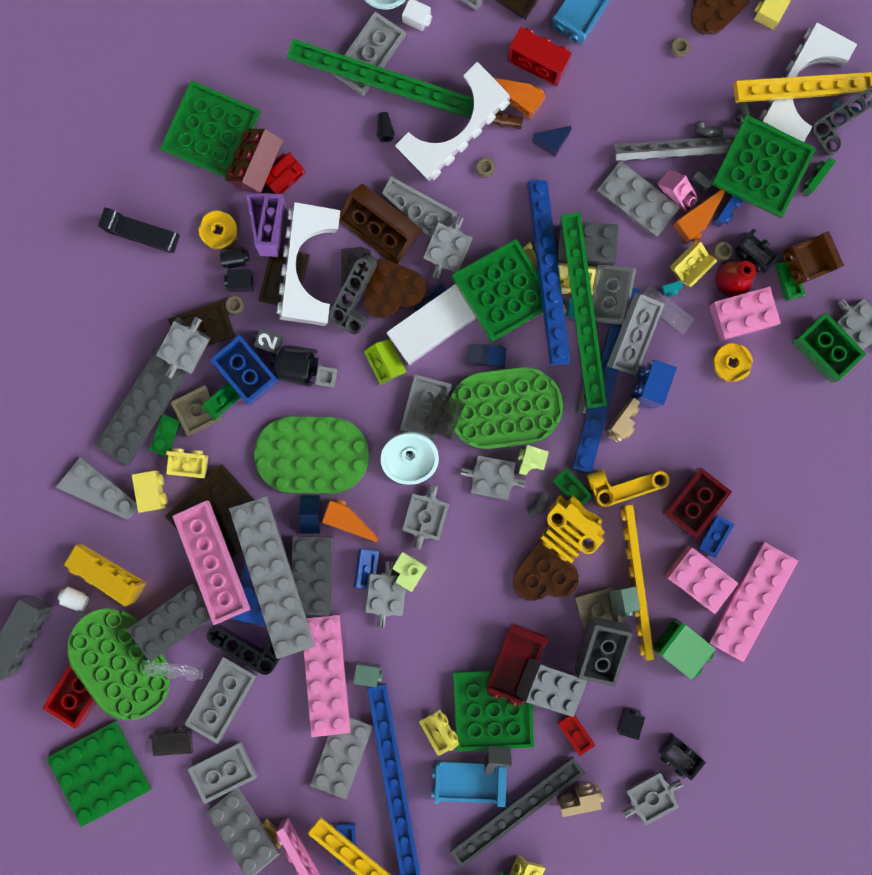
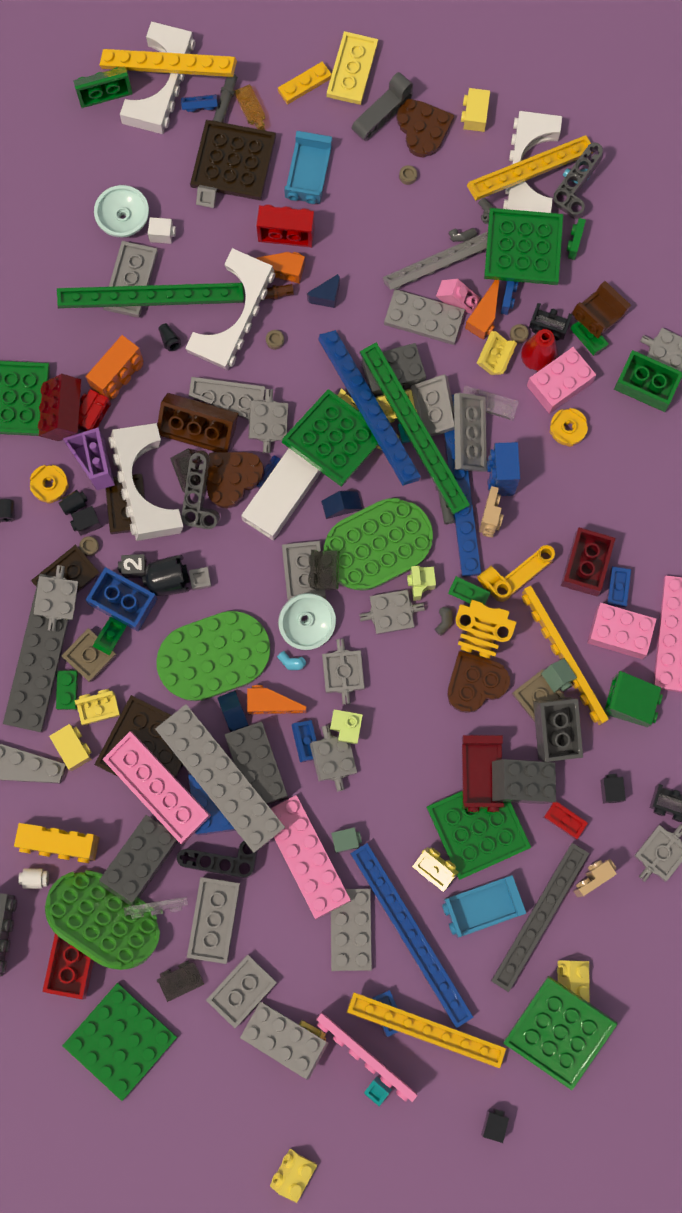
camera: 25 degrees left, 10 degrees down
(320, 140) = (115, 368): none -> orange brick
(382, 491) = (291, 663): none -> medium azure arm
(385, 361) = (249, 544): lime panel -> none
(495, 757) = (498, 869): dark grey panel -> none
(671, 289) = (486, 382): teal plate -> none
(703, 178) = (475, 277): dark grey panel -> none

